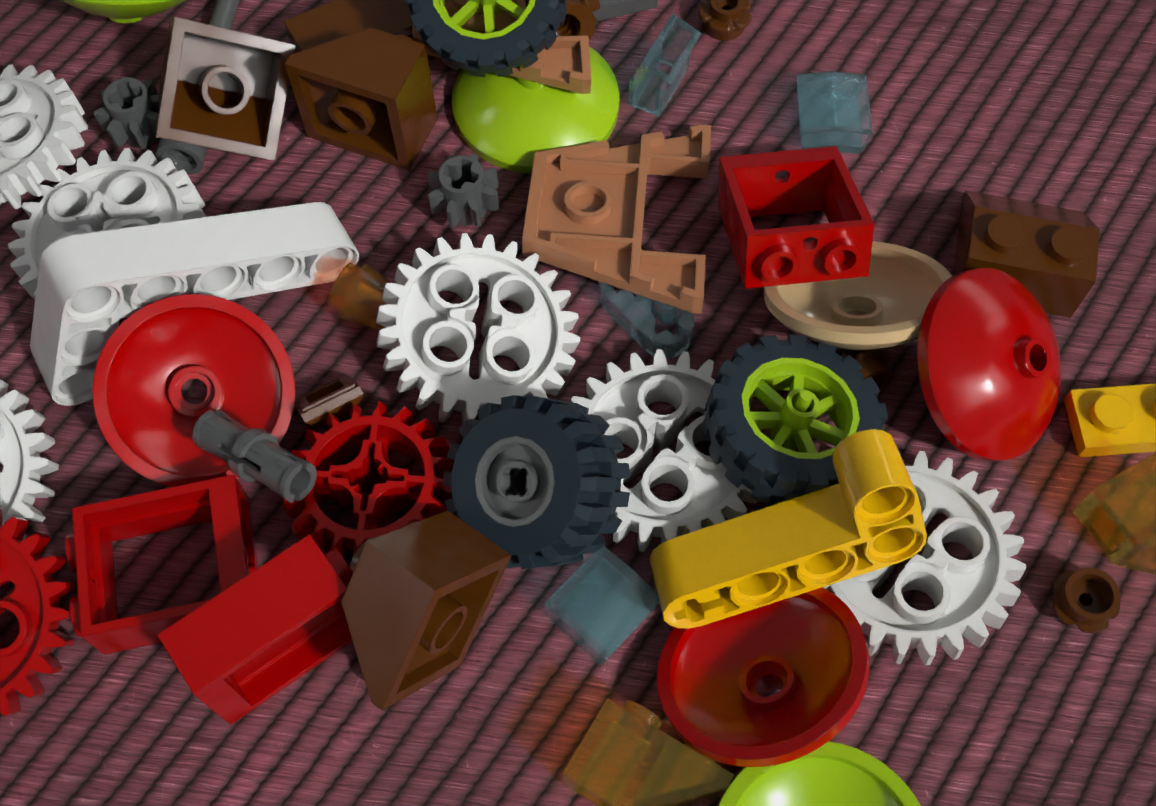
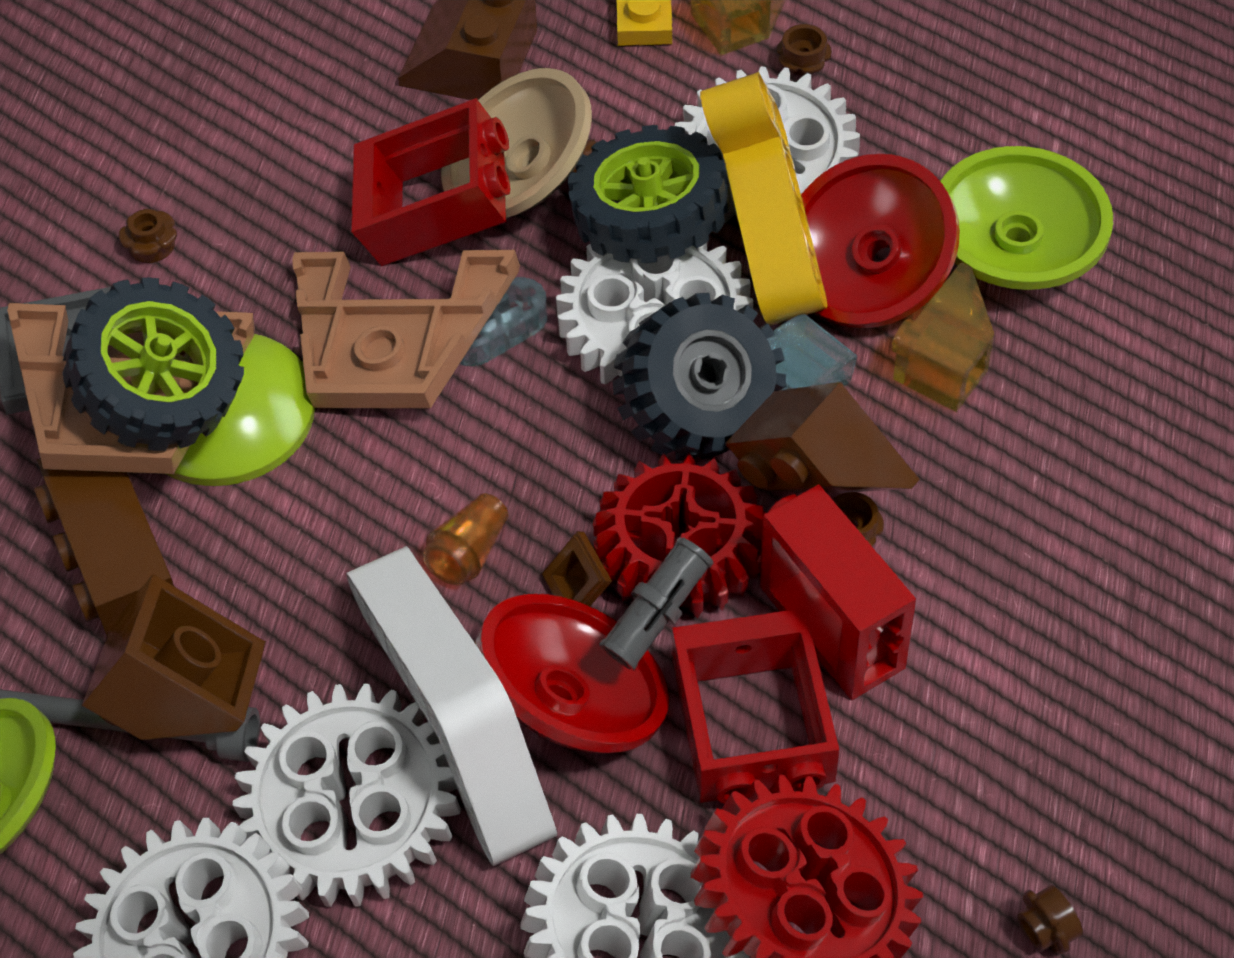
camera: 85 degrees left, 10 degrees down
(129, 112) = (172, 764): dark grey gear -> none
(366, 95) = (230, 513): reddish brown slope -> none
(422, 320) = (516, 443): white gear -> none
(463, 190) = (343, 457): dark grey gear -> none
(652, 88) = (218, 273): clear light blue piece -> none
(834, 110) = (295, 159): clear light blue piece -> none
(988, 364) = (603, 55): red dish -> none

